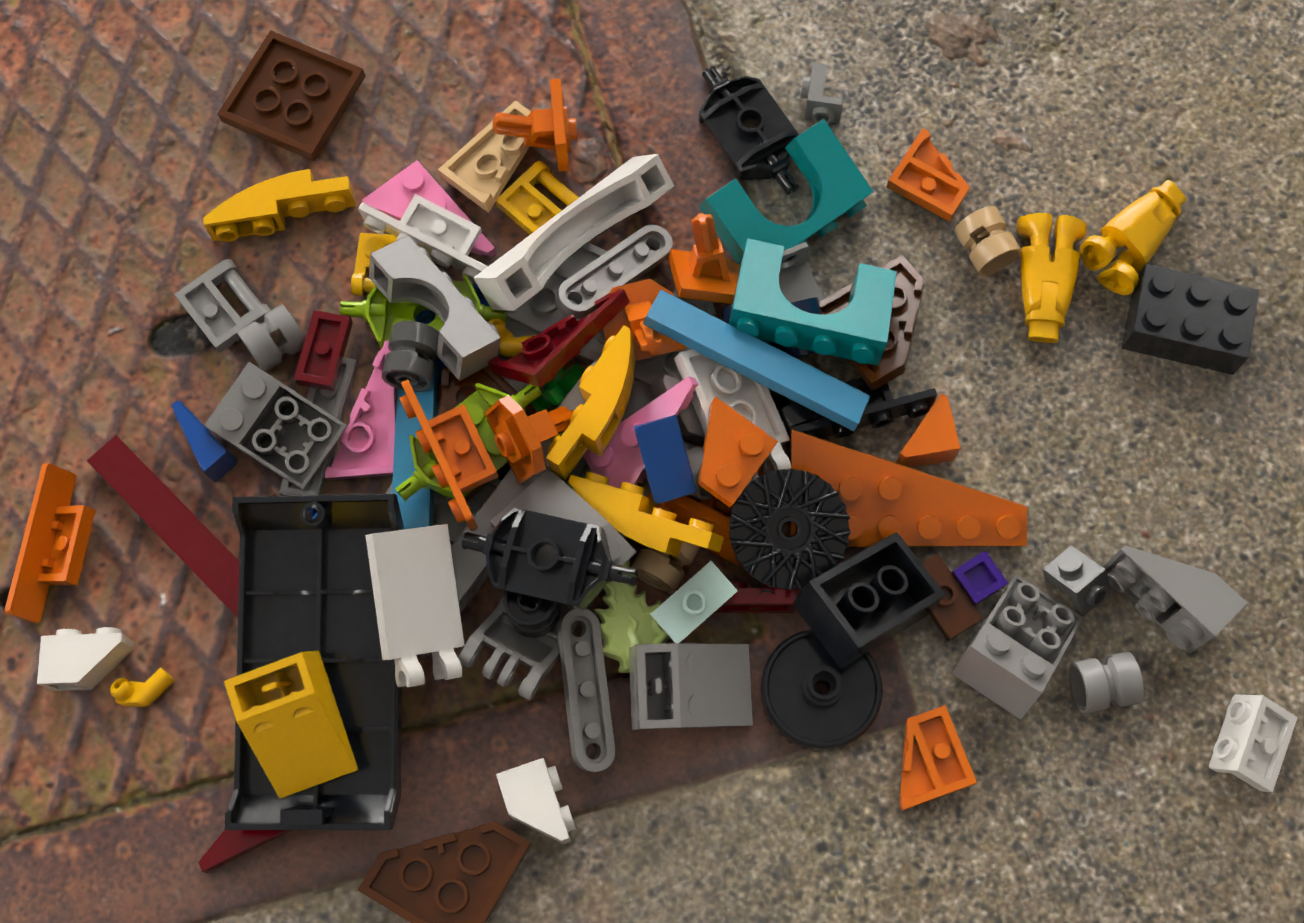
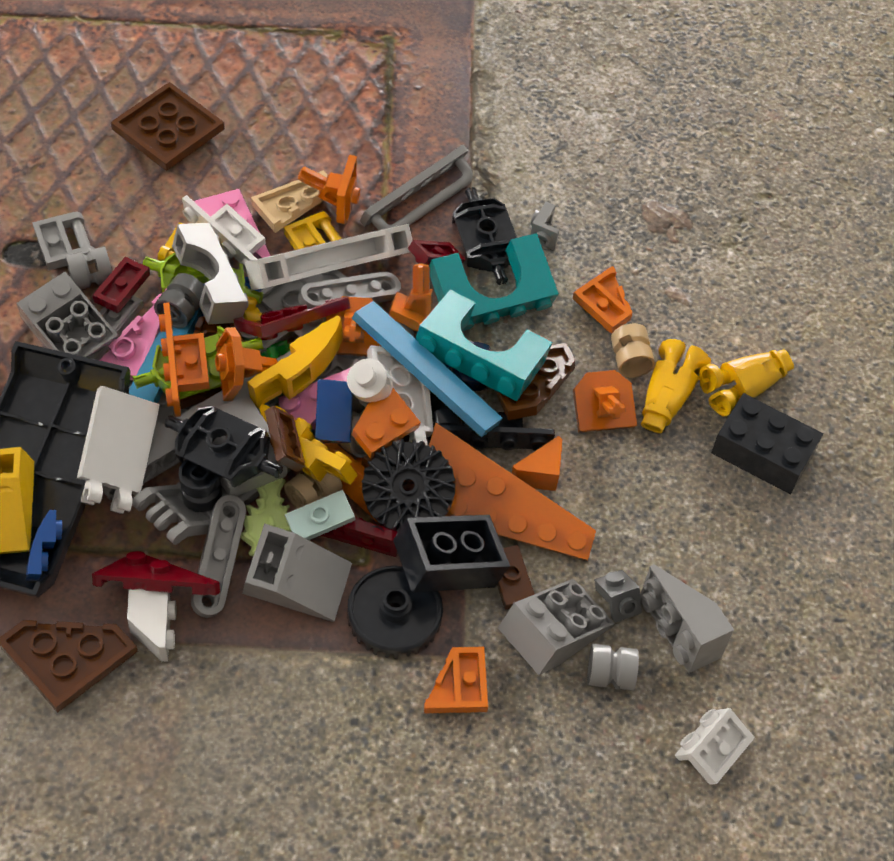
camera: 10 degrees right, 15 degrees down
(209, 452) = (12, 321): blue slope -> none
(264, 205) = (122, 186): yellow slope -> none
(372, 748) = (45, 538): none -> blue slope
(511, 743) = (151, 574): none -> dark red wing
(623, 525) = (284, 438): none -> reddish brown plate
(675, 31) = (455, 158): none -> light grey piece
(700, 180) = (427, 250): none -> dark red plate
(700, 410) = (369, 380): none -> white piece
(795, 277) = (483, 331): light grey bracket -> none
(975, 324) = (604, 402): none -> orange piece
(980, 578) = (543, 571): dark purple plate -> none

